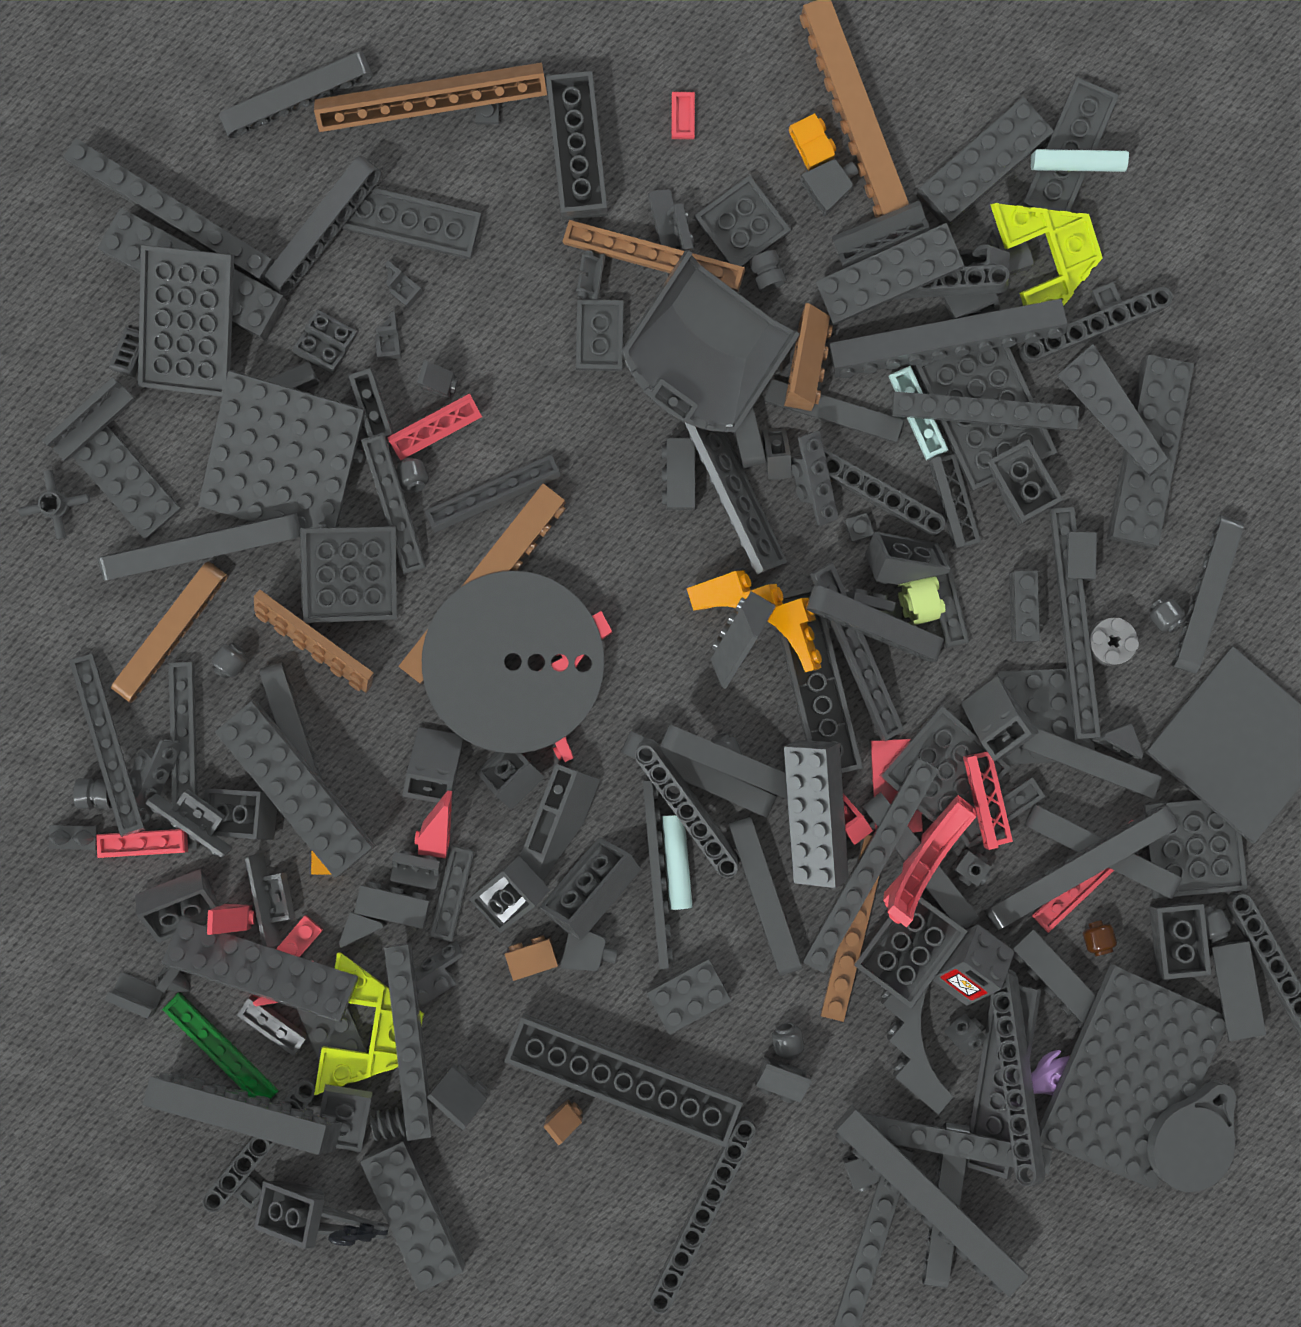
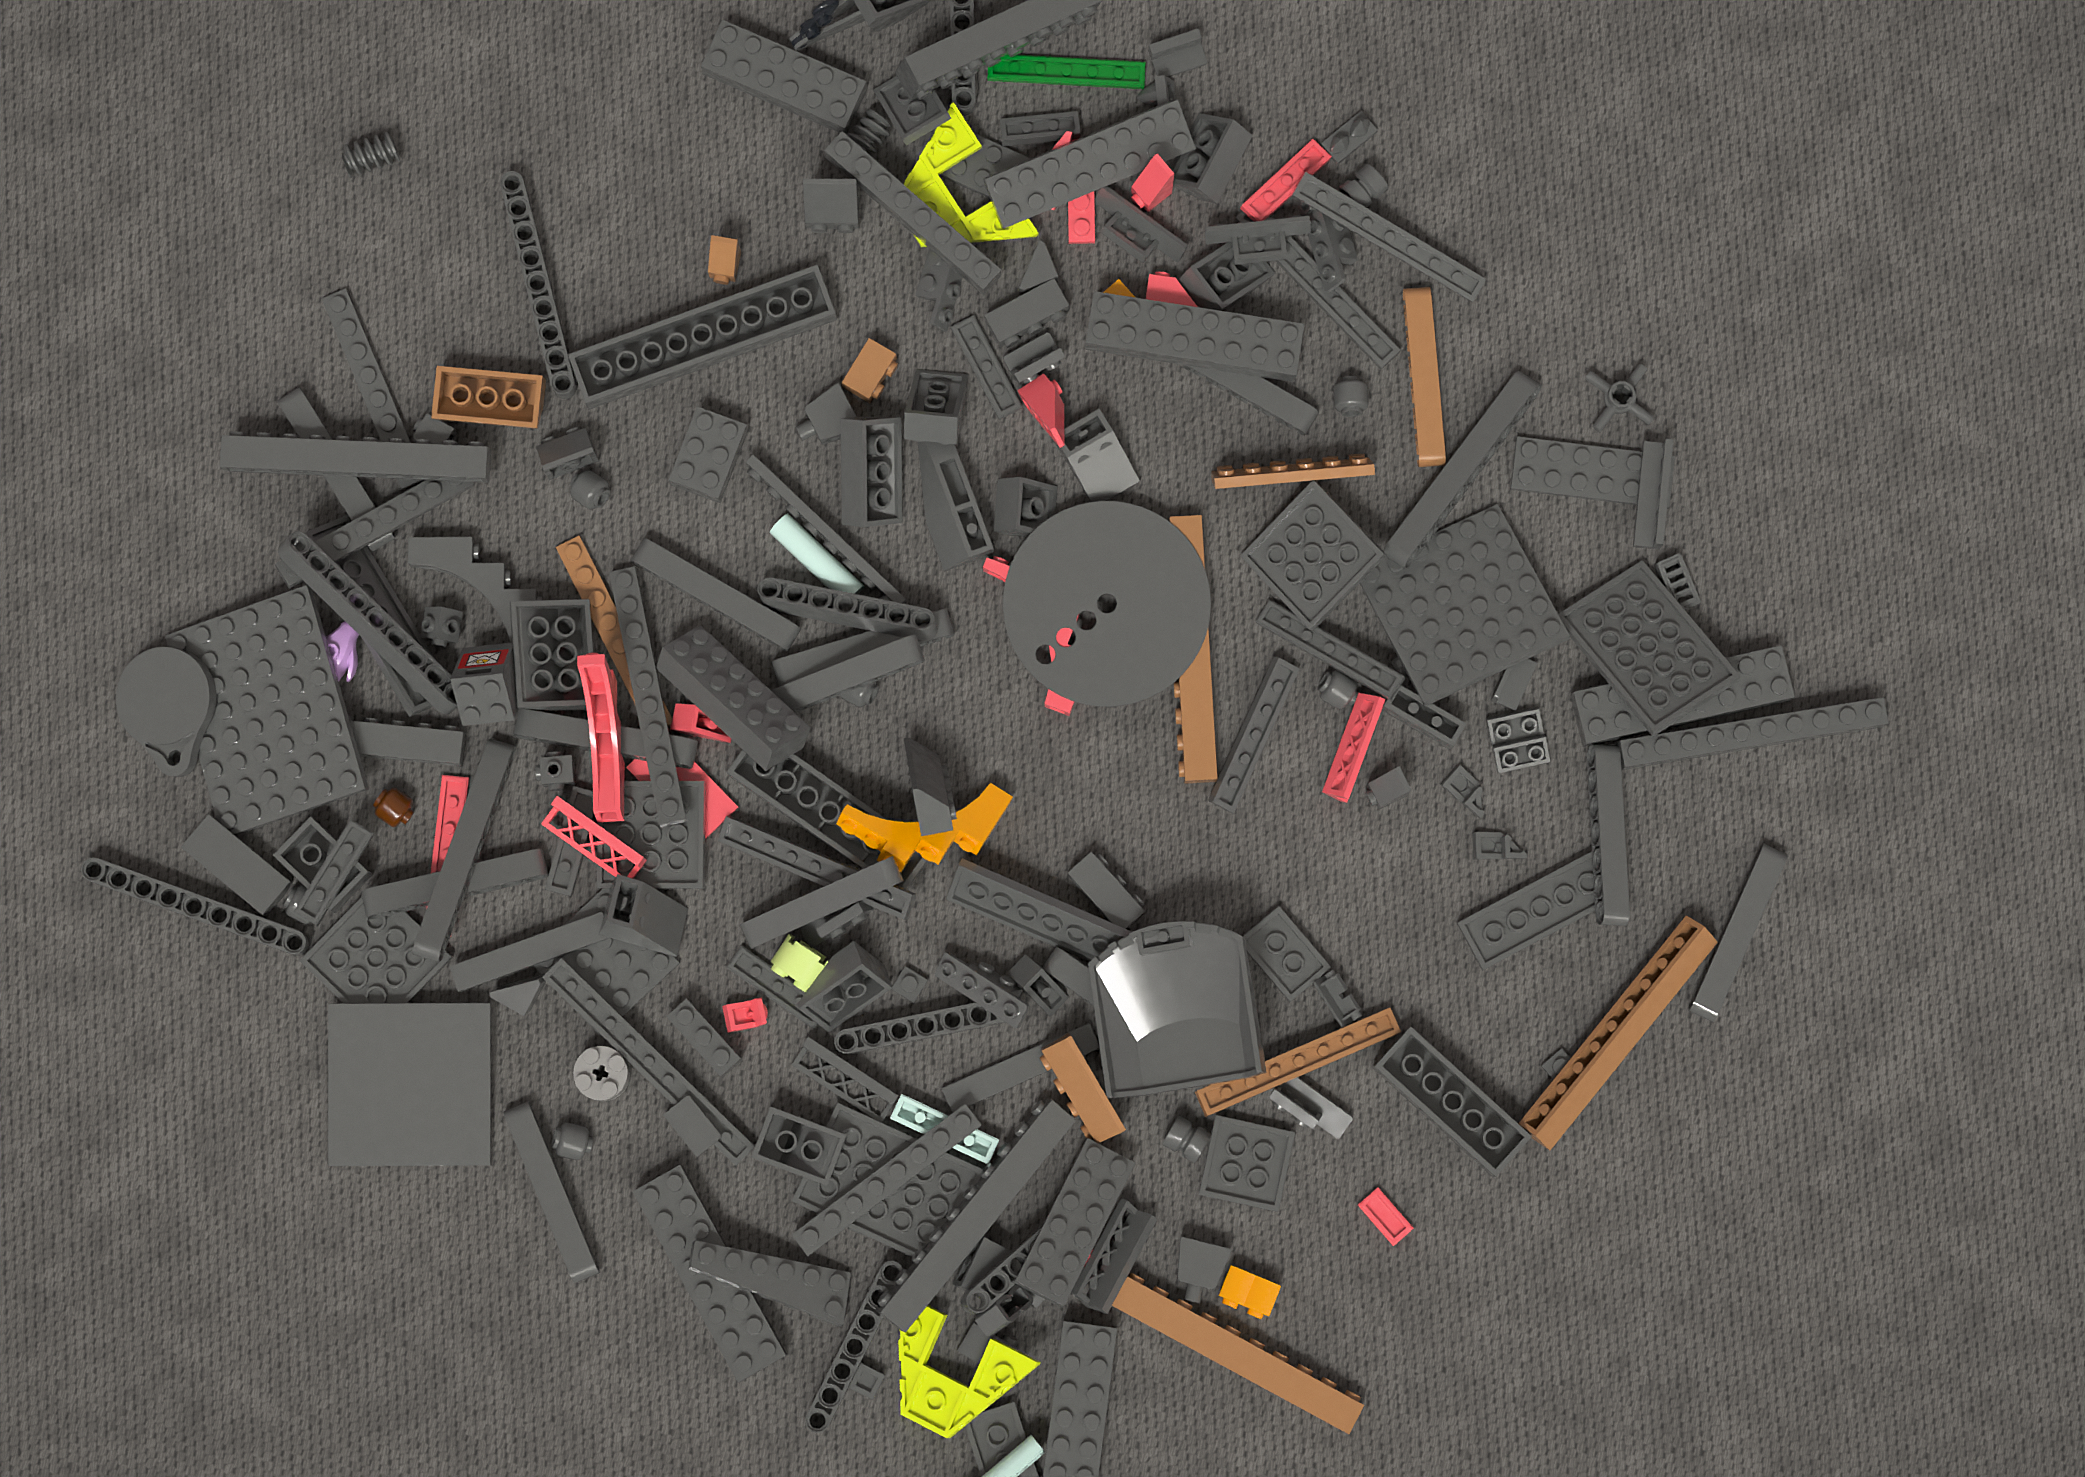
camera: 140 degrees right, 5 degrees down
(286, 838) = (1167, 289): none -> coral slope
(803, 1164) = (488, 397): none -> medium nougat slope
(984, 599) = (745, 1015): none -> coral bracket
(1181, 927) = (334, 872): none -> dark grey tile

